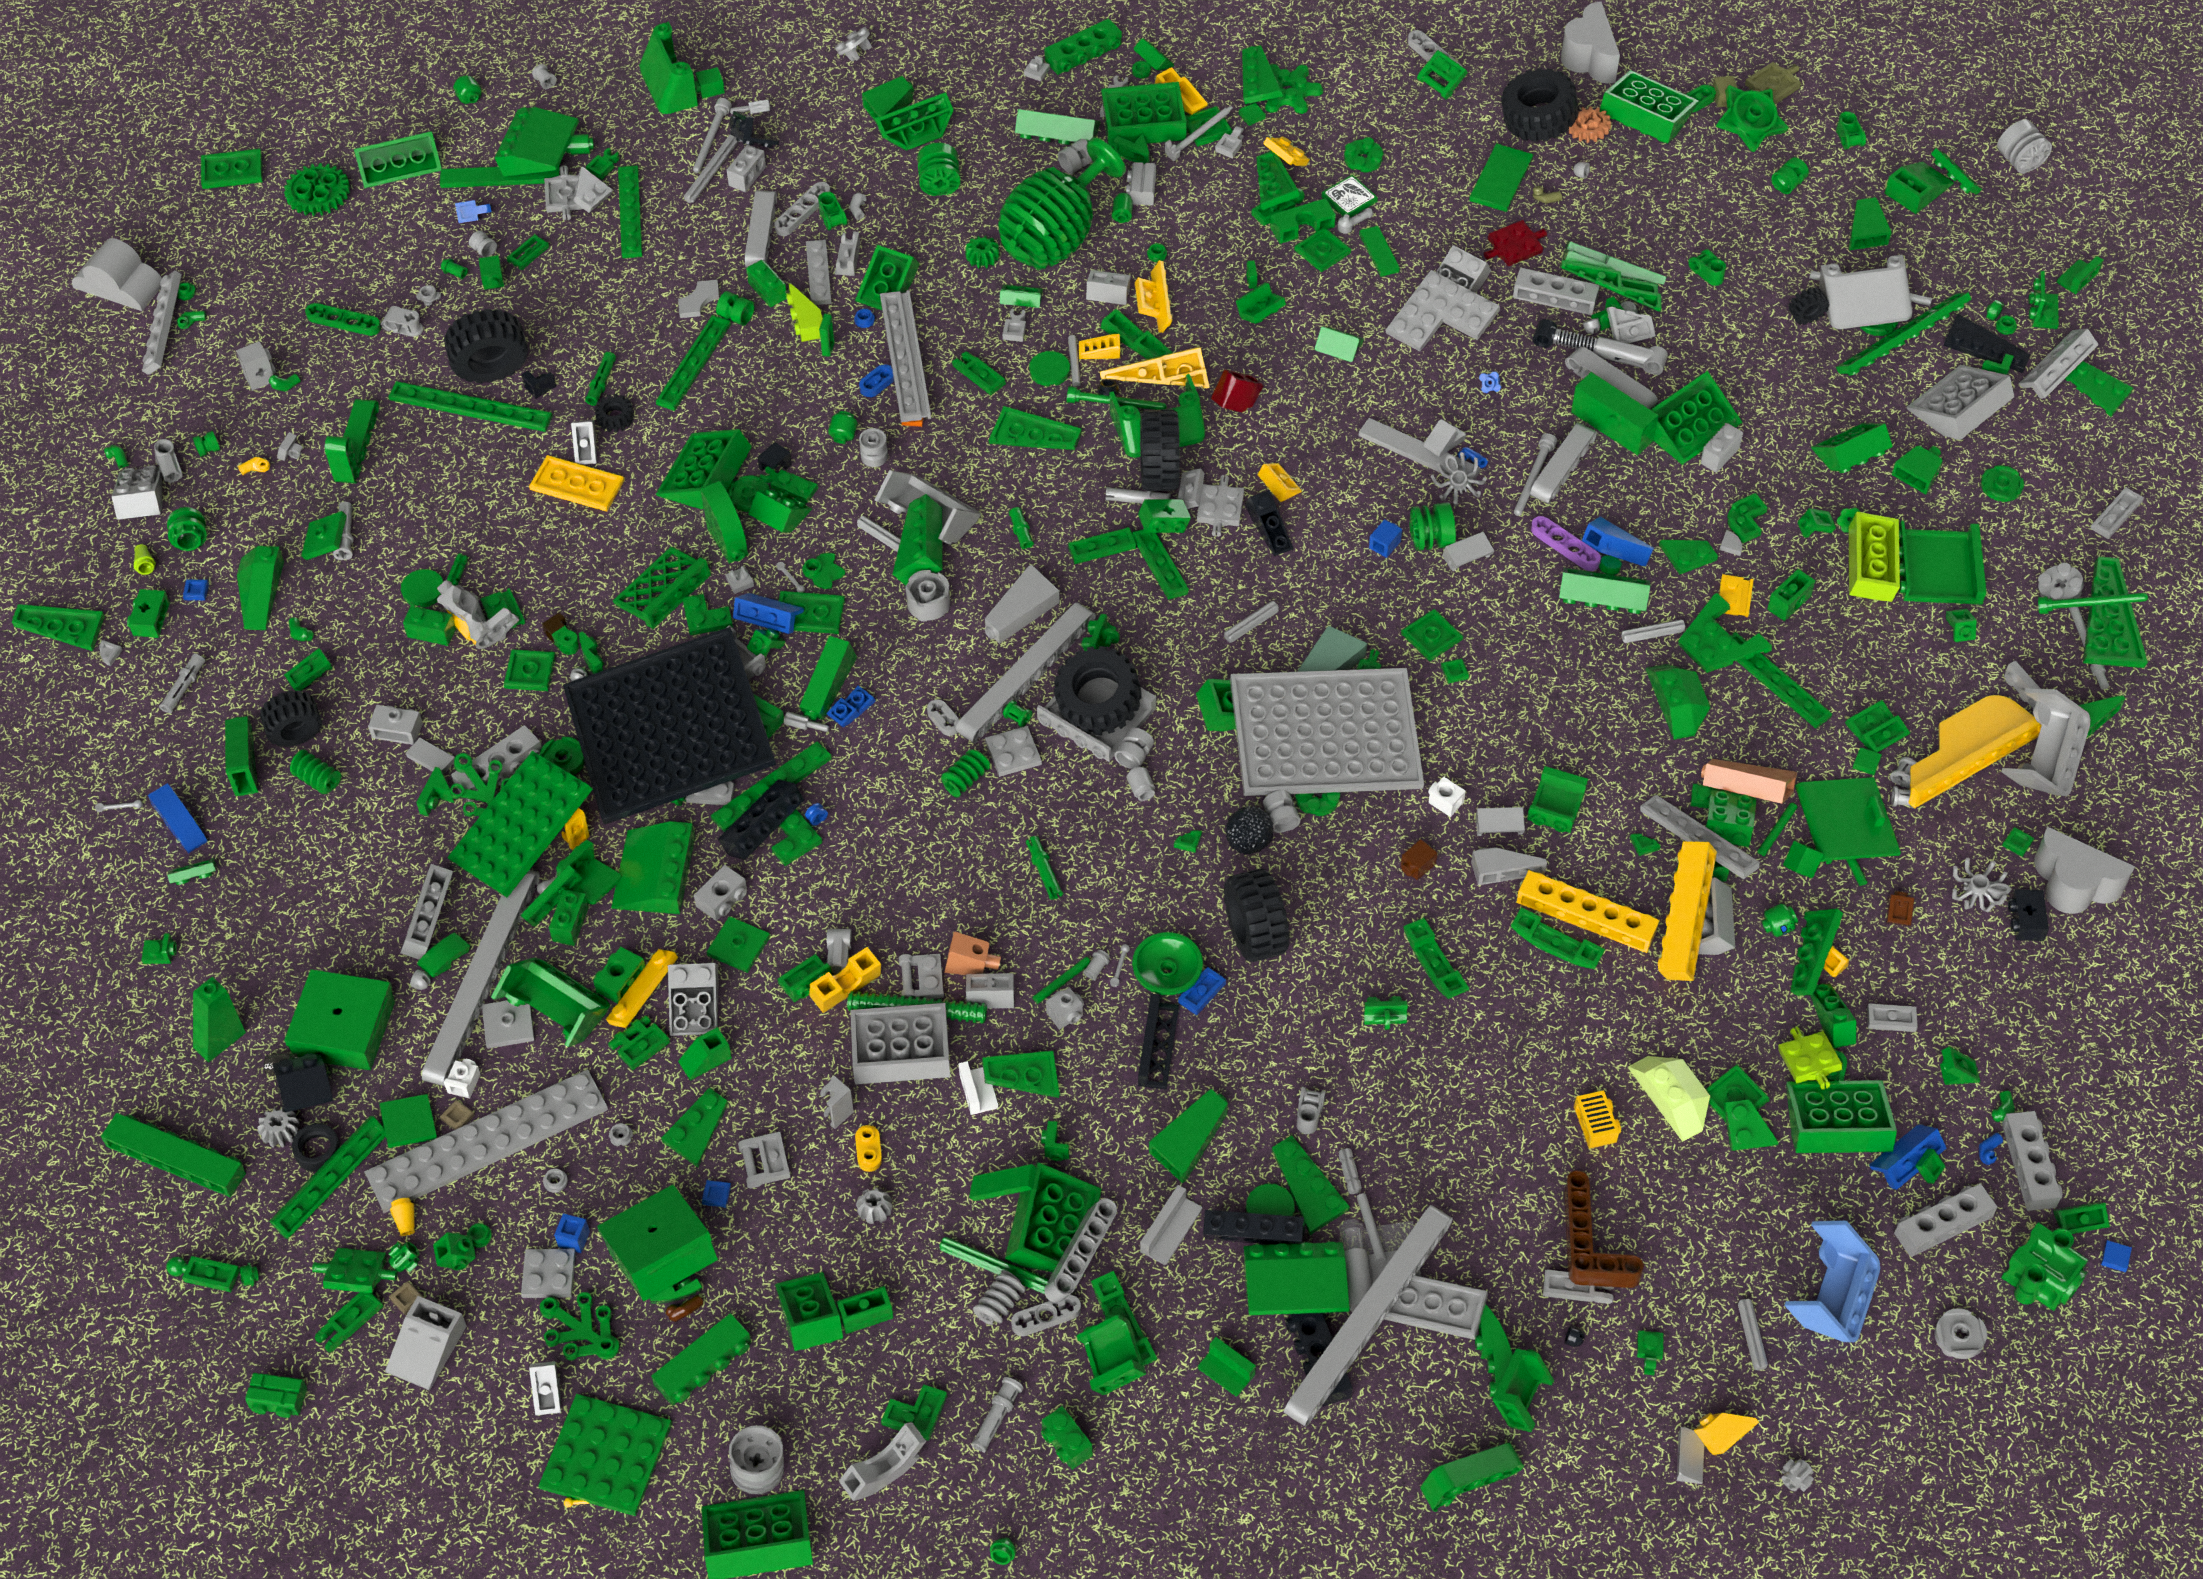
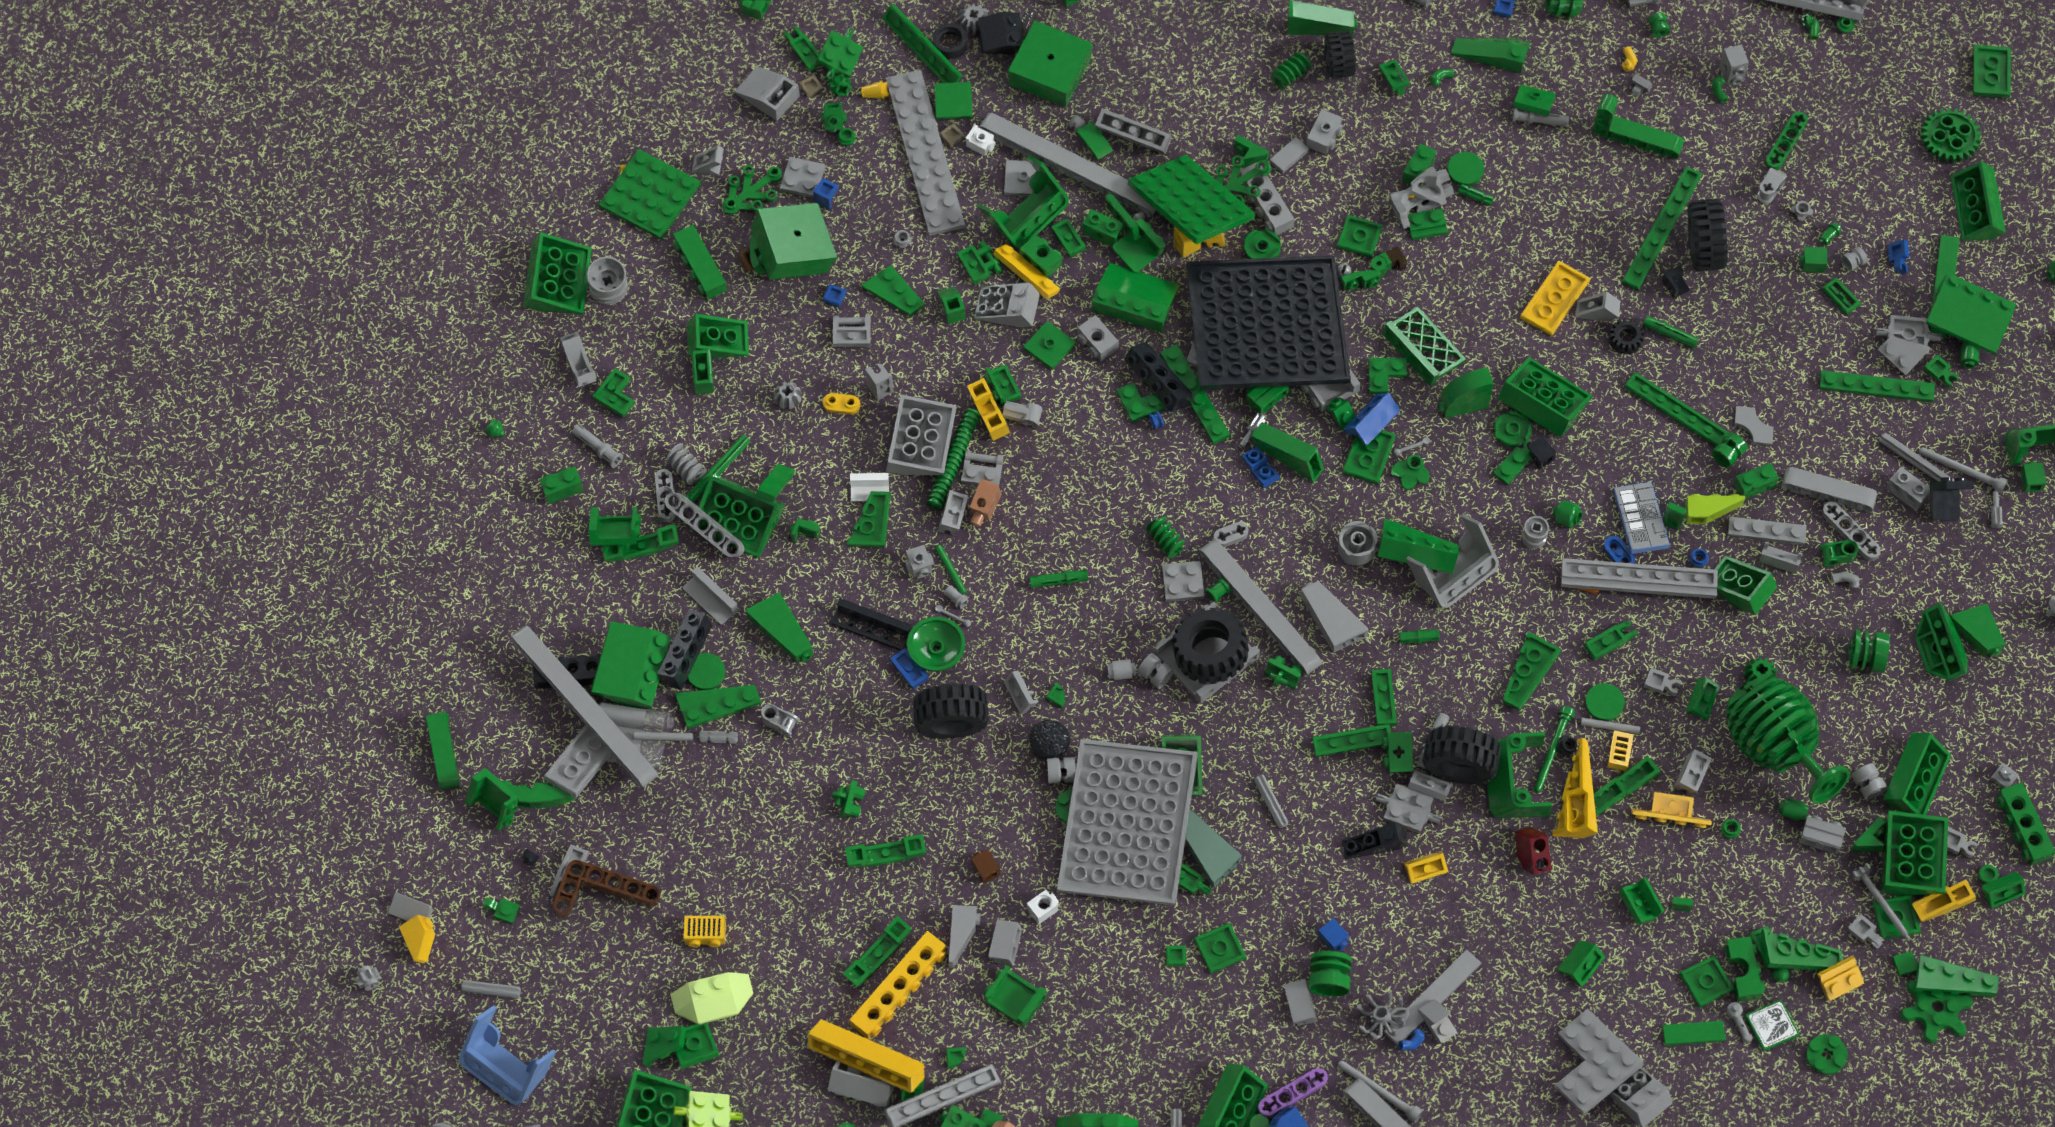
camera: 105 degrees right, 10 degrees up
(555, 1174) = (876, 186): light grey plate -> none
(586, 954) = (1068, 238): none -> green plate
(739, 580) = (1416, 405): light grey tile -> none
(778, 509) = (1484, 447): green slope -> none
(831, 367) = (1641, 518): none -> tile
(879, 532) = (1444, 522): light grey axle -> none
(1199, 873) = (1019, 693): none -> light grey plate
(1227, 1367) = (584, 608): green panel -> none
(1485, 378) = (1500, 1084): plate -> none

